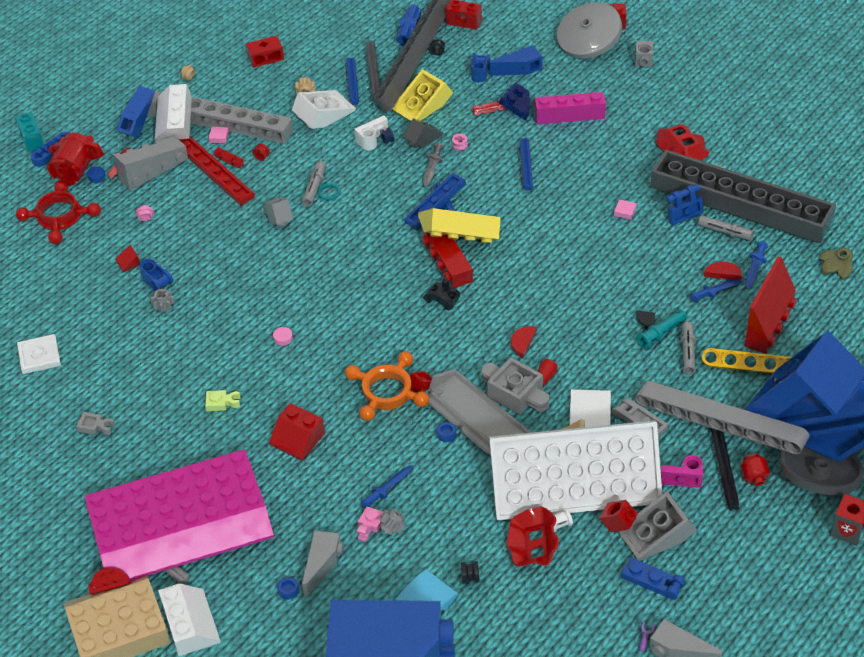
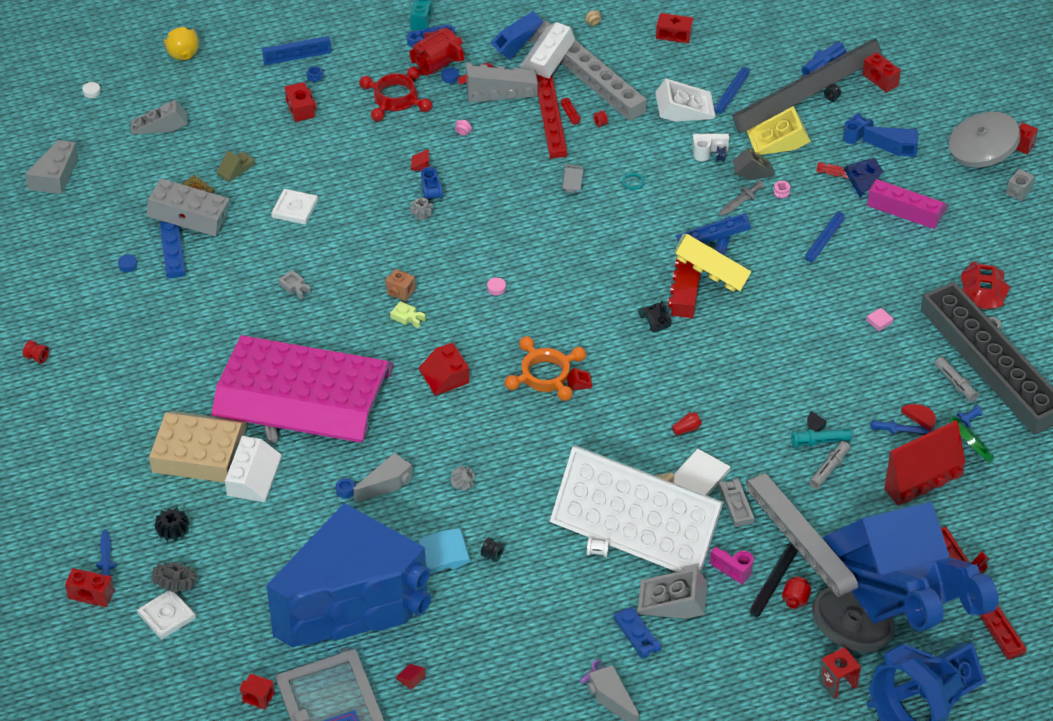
camera: 30 degrees right, 0 degrees up
(108, 579) = (212, 408): red tile -> none
(197, 376) = (400, 284): none -> nougat brick
(218, 134) = (578, 86): bright pink tile -> none
(305, 85) = (683, 75): tan gear -> none
(316, 177) = (628, 164): light grey pin -> none
(368, 522) = (444, 470): bright pink plate -> none
(373, 67) = (761, 84): flat silver axle -> none
(380, 492) = (474, 451): blue sword -> none
(446, 432) = (566, 431): blue tile -> none
(471, 409) = (602, 421): light grey slope -> none
(515, 386) = (650, 421): light grey brick -> none
(519, 536) = (556, 543): red piece -> none
(522, 339) = (692, 387): red tile -> none
(618, 516) = (646, 568): red brick -> none
(684, 209) = (932, 344): blue plate -> none
(740, 360) = (866, 495): yellow beam -> none
(794, 269) = (973, 440): none -> green tile
(834, 262) = (1031, 458): olive plate -> none

